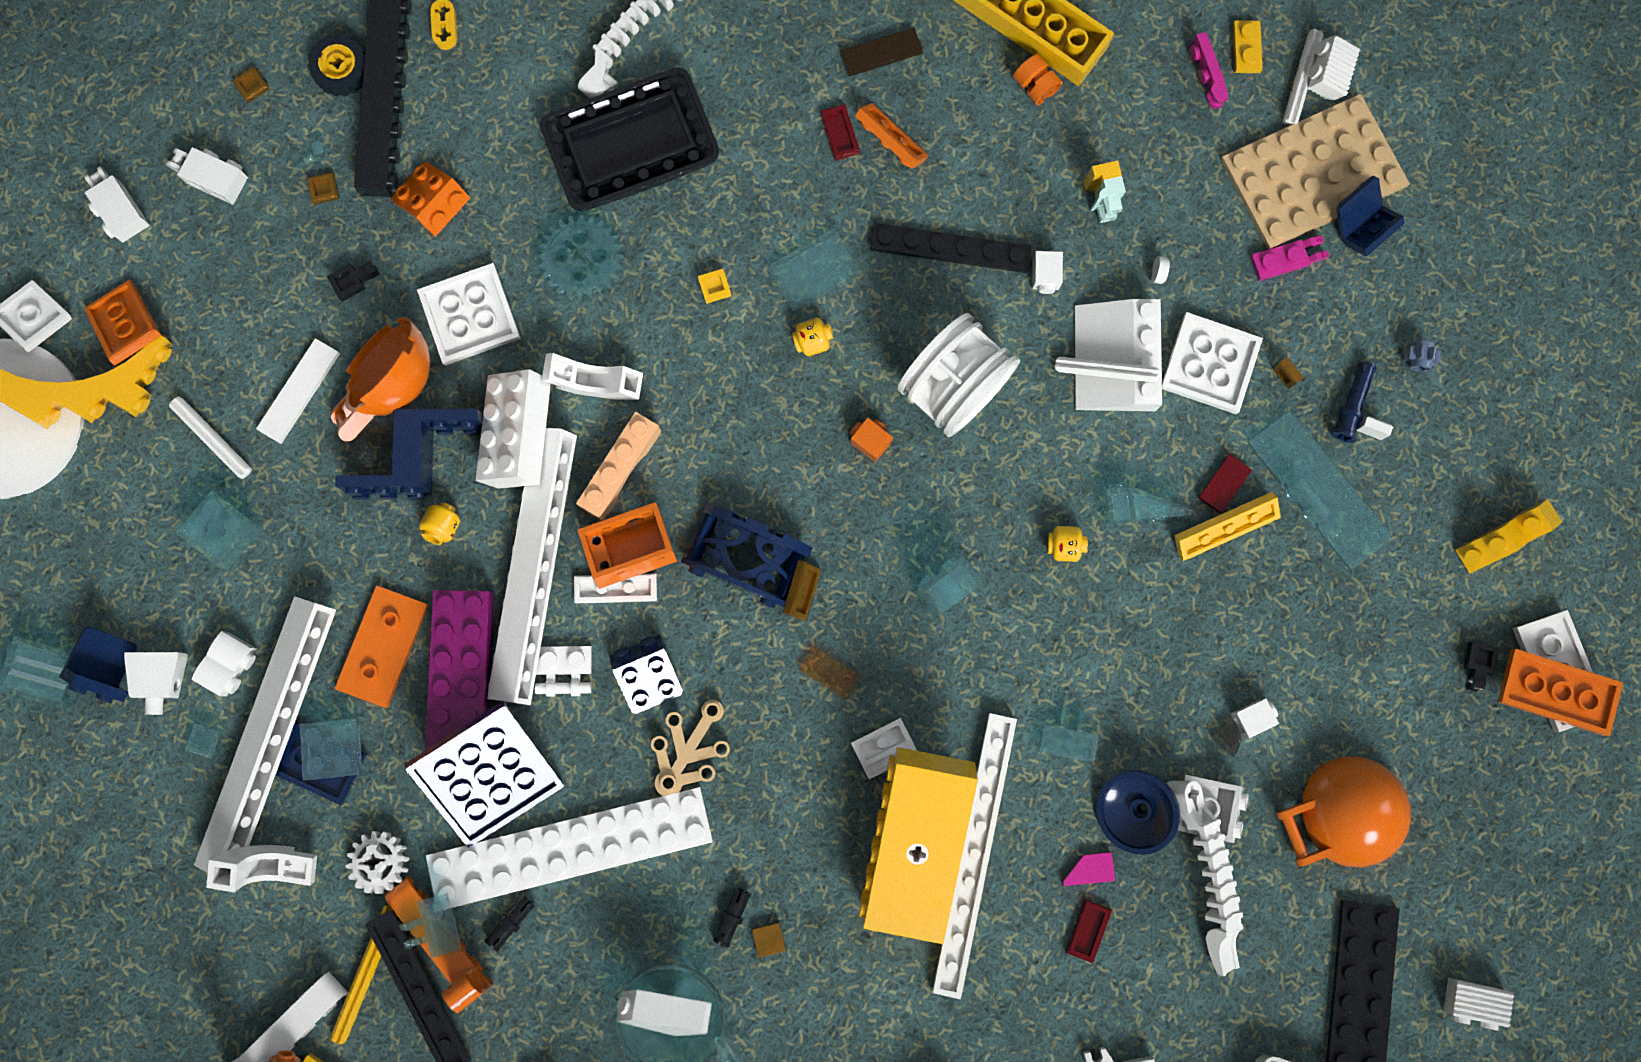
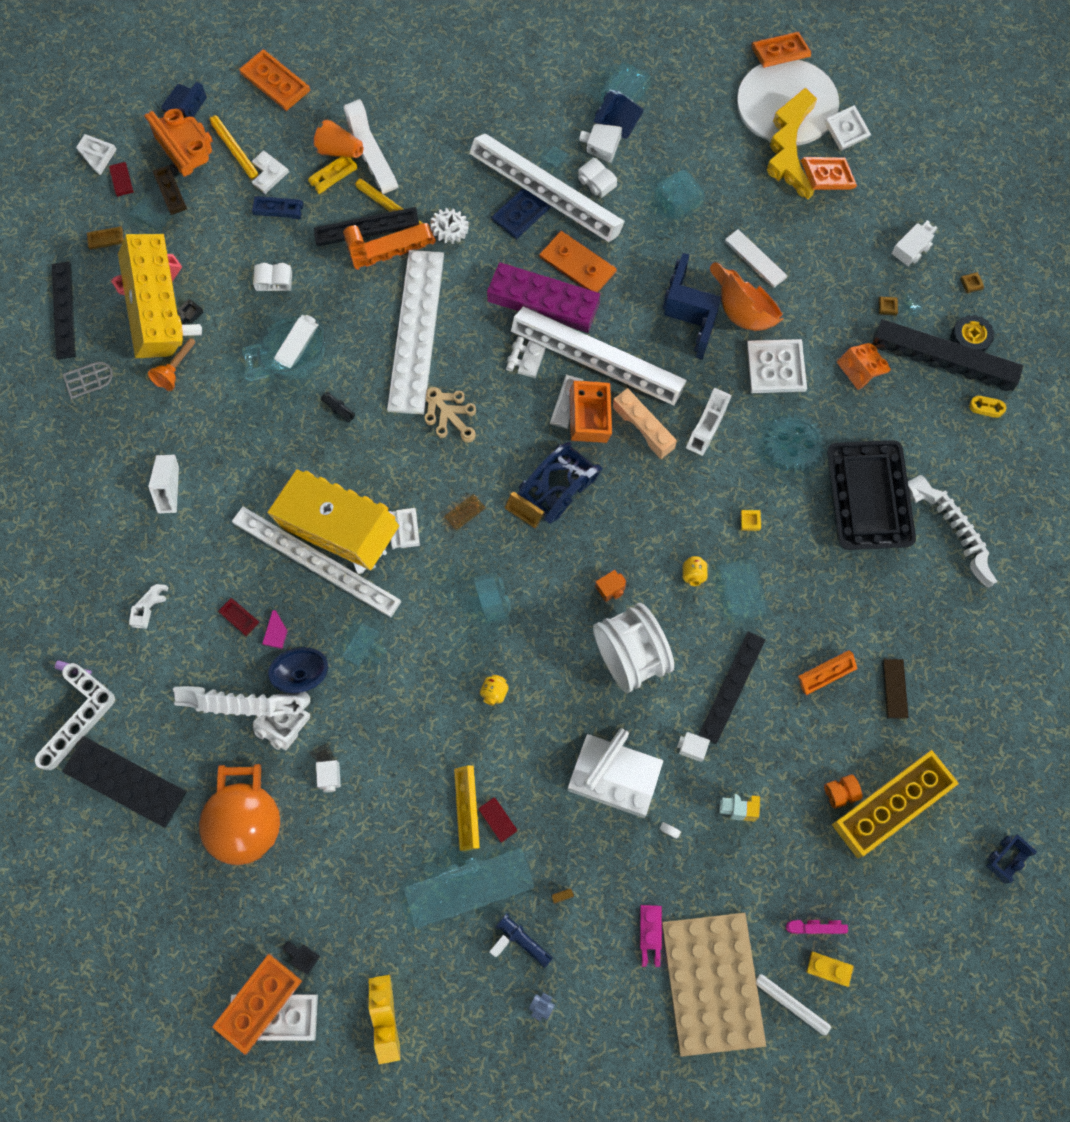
camera: 115 degrees right, 10 degrees down
(114, 206) = (908, 187): white brick -> none
(210, 437) = (741, 204): white axle -> none
(260, 863) = (474, 162): white arch -> none
(330, 749) = (525, 218): clear light blue plate -> none
(349, 280) = (820, 303): black plate -> none
(438, 926) = (399, 244): clear light blue hinge -> none
(439, 523) = (643, 312): yellow head -> none
(484, 774) = (477, 290): plate -> none
(509, 923) = (385, 285): black pin -> none
(513, 429) = (688, 365): white brick -> none
(645, 674) = (506, 400): bracket -> none
(768, 939) = (315, 424): pearl gold tile -> none
(840, 132) = (840, 639): dark red tile -> none
(1135, 505) = (504, 746): clear light blue slope -> none
(1211, 363) = (588, 842): white plate -> none
(1333, 68) = (793, 1029): white brick -> none
(1364, 219) = (662, 1004): dark blue bracket -> none
(1478, 1002) = (79, 856): white brick -> none

